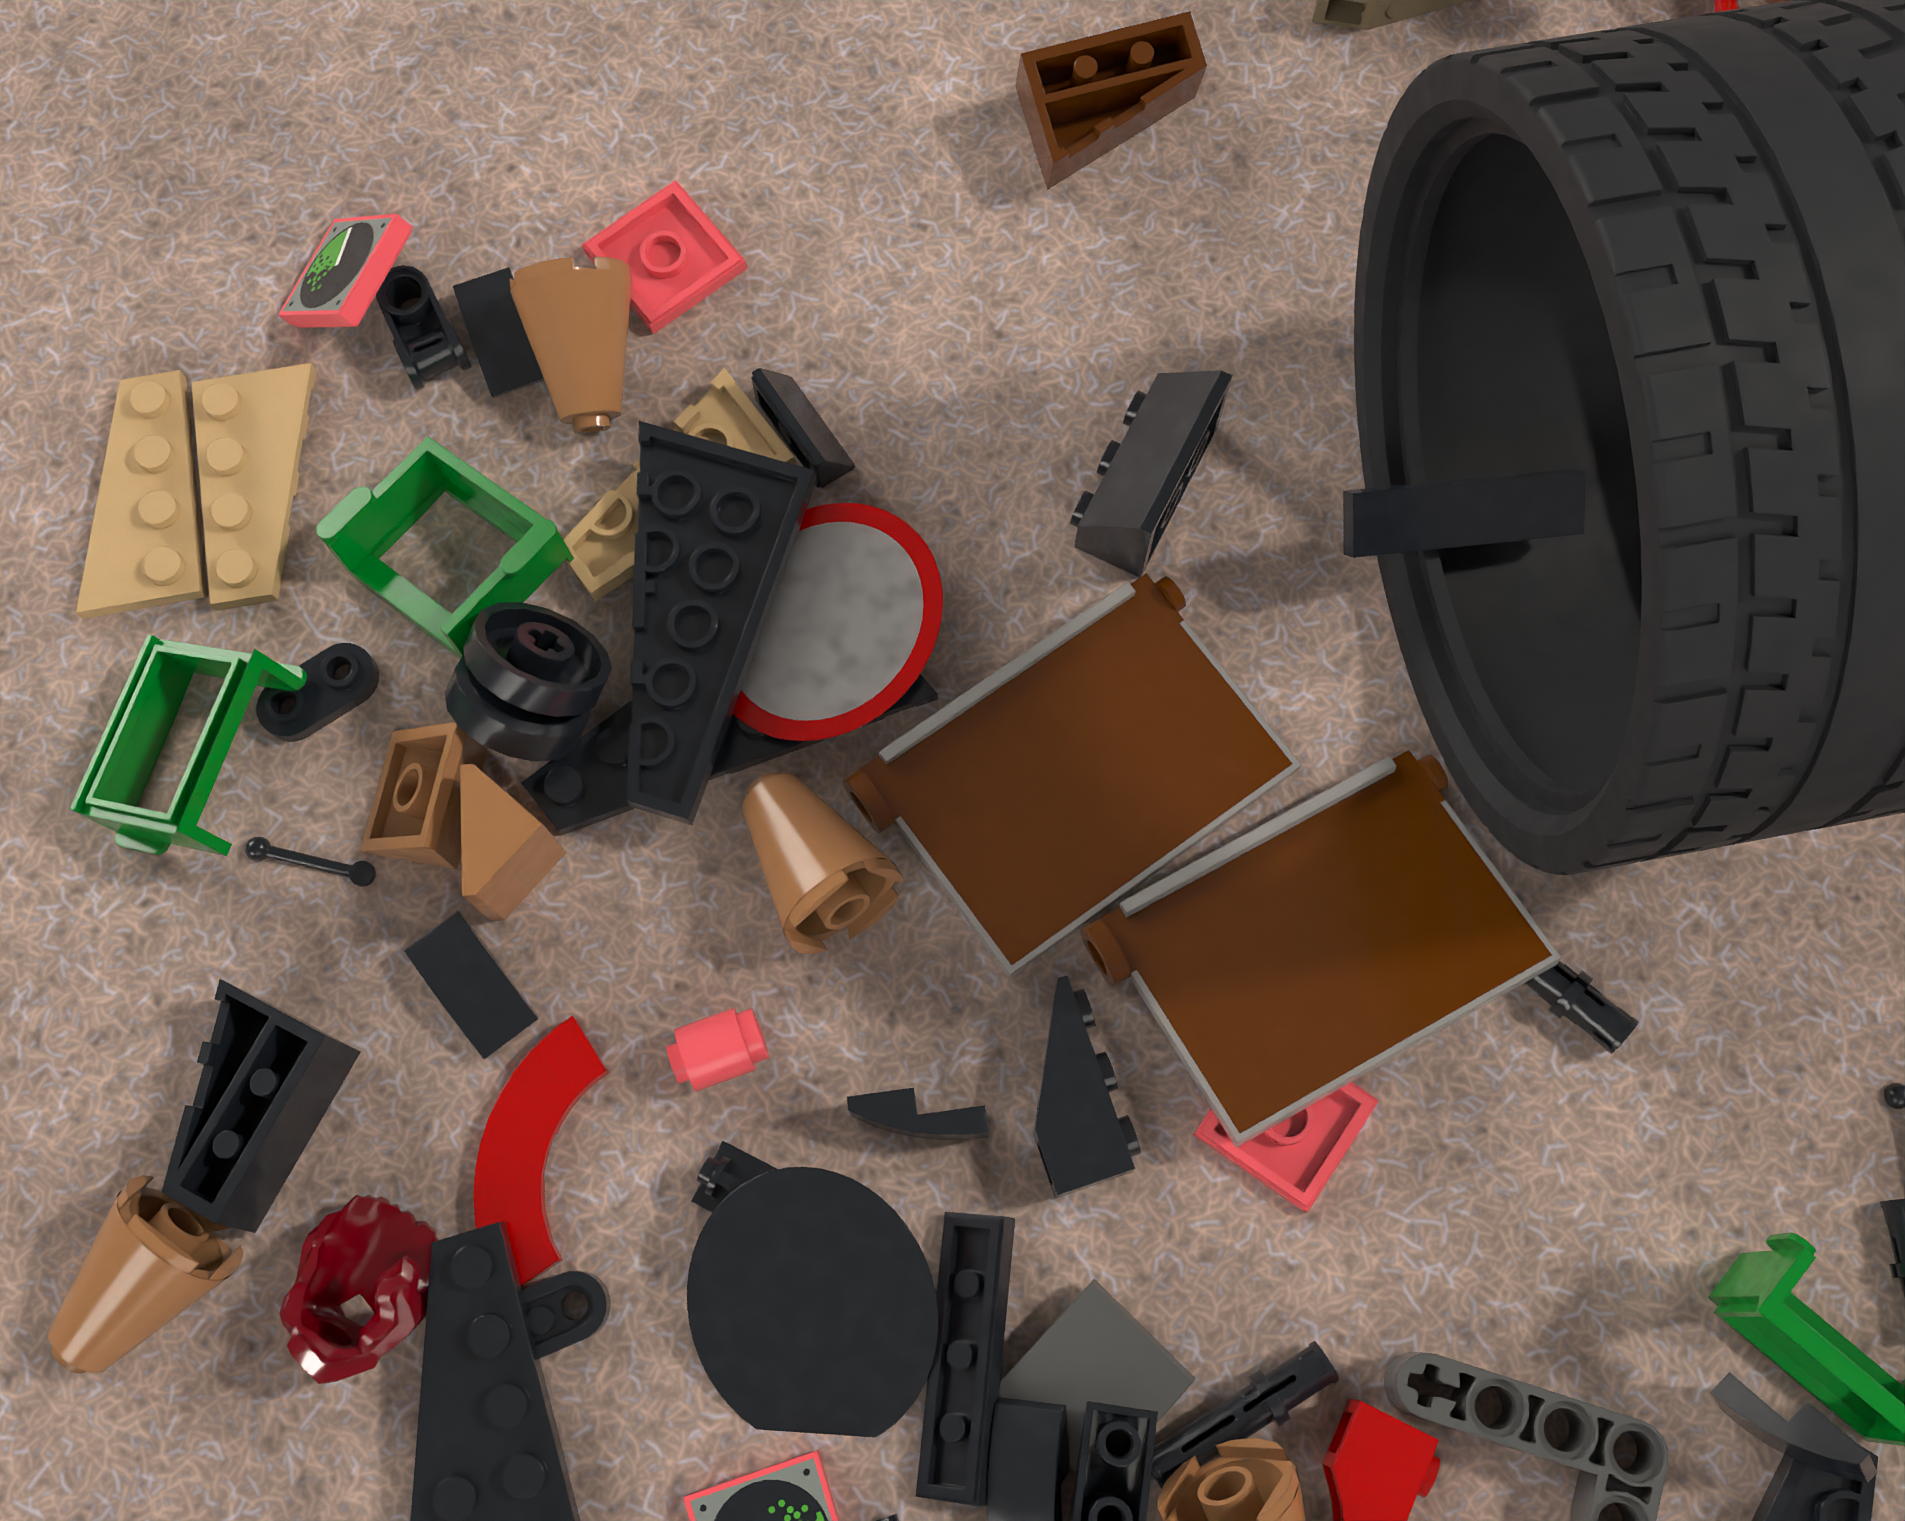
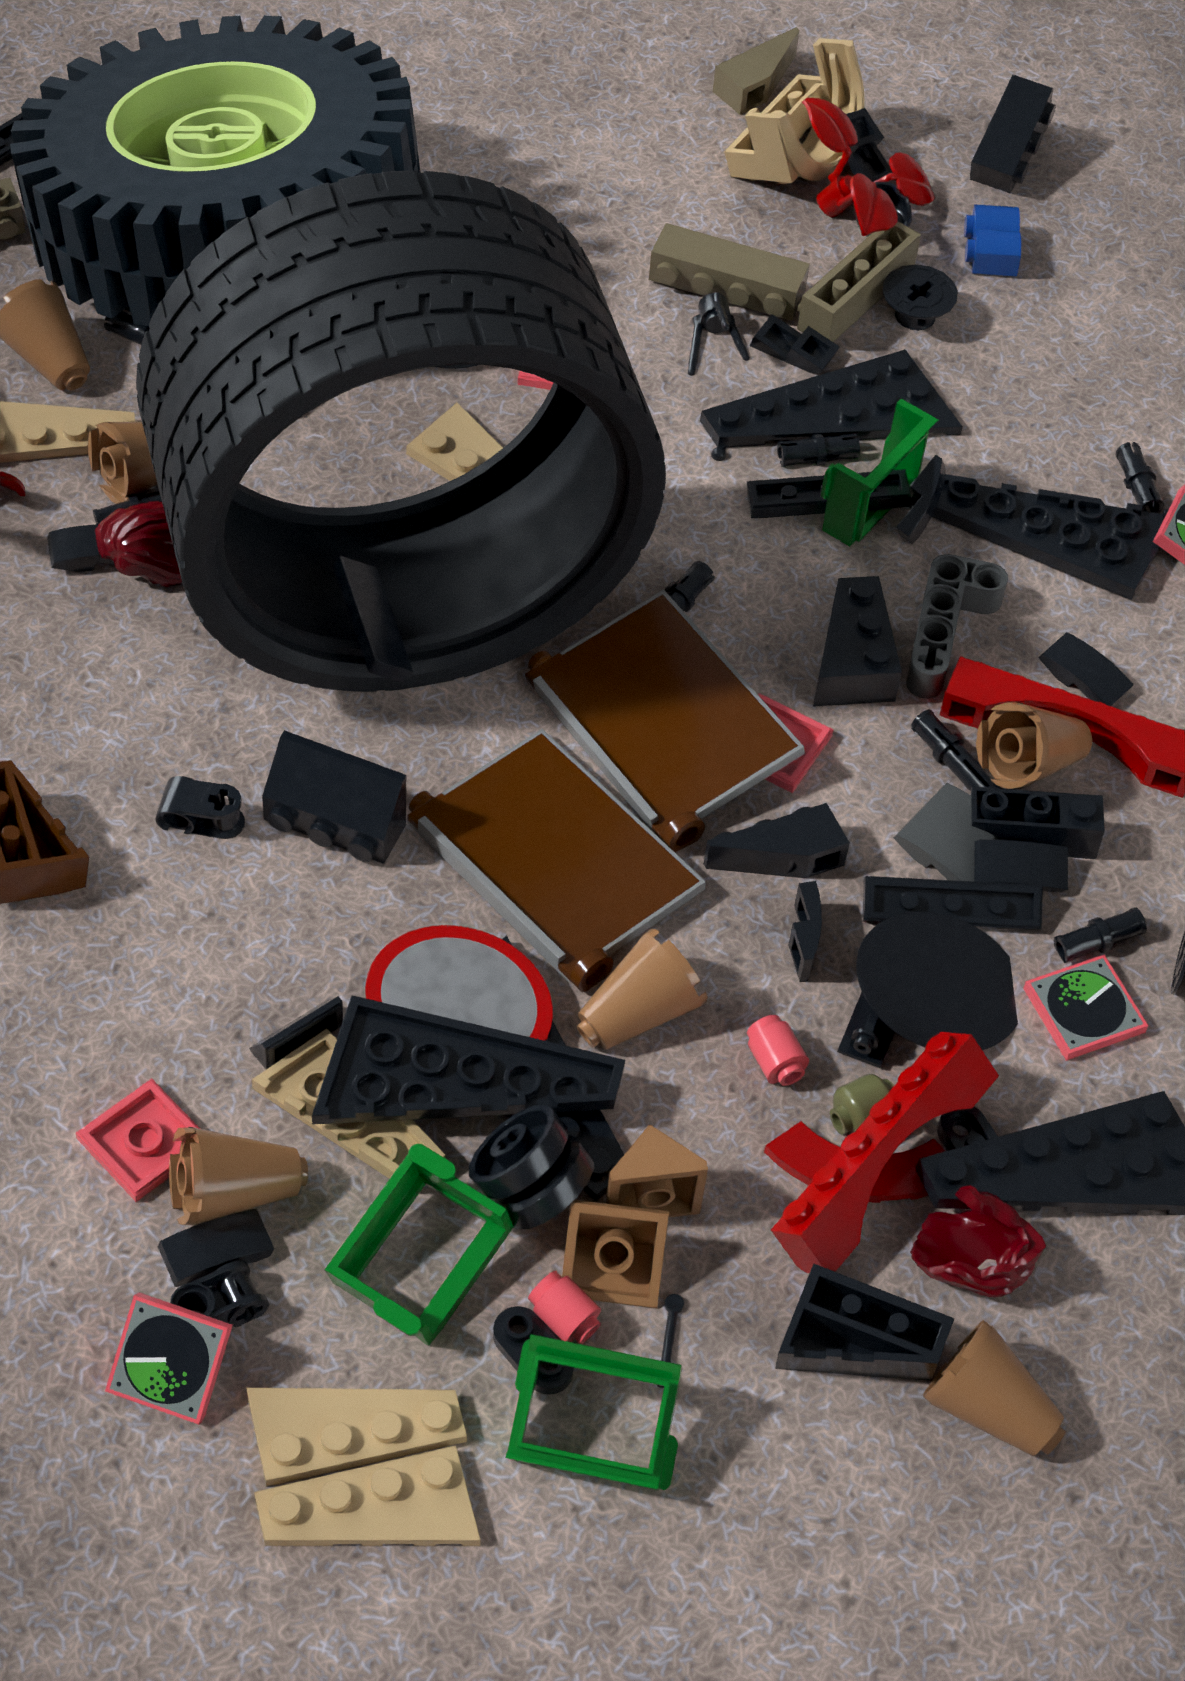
camera: 100 degrees left, 20 degrees down
(354, 728) = (565, 1308): none -> coral brick
(471, 984) = (748, 1213): black slope -> none
(605, 1264) = (829, 1214): none -> red arch
(615, 1165) = (854, 1101): none -> olive head
(1156, 309) = (199, 806): none -> black piece
(1469, 1268) = (859, 648): none -> black wedge
(1808, 1201) = (803, 495): none -> black tile

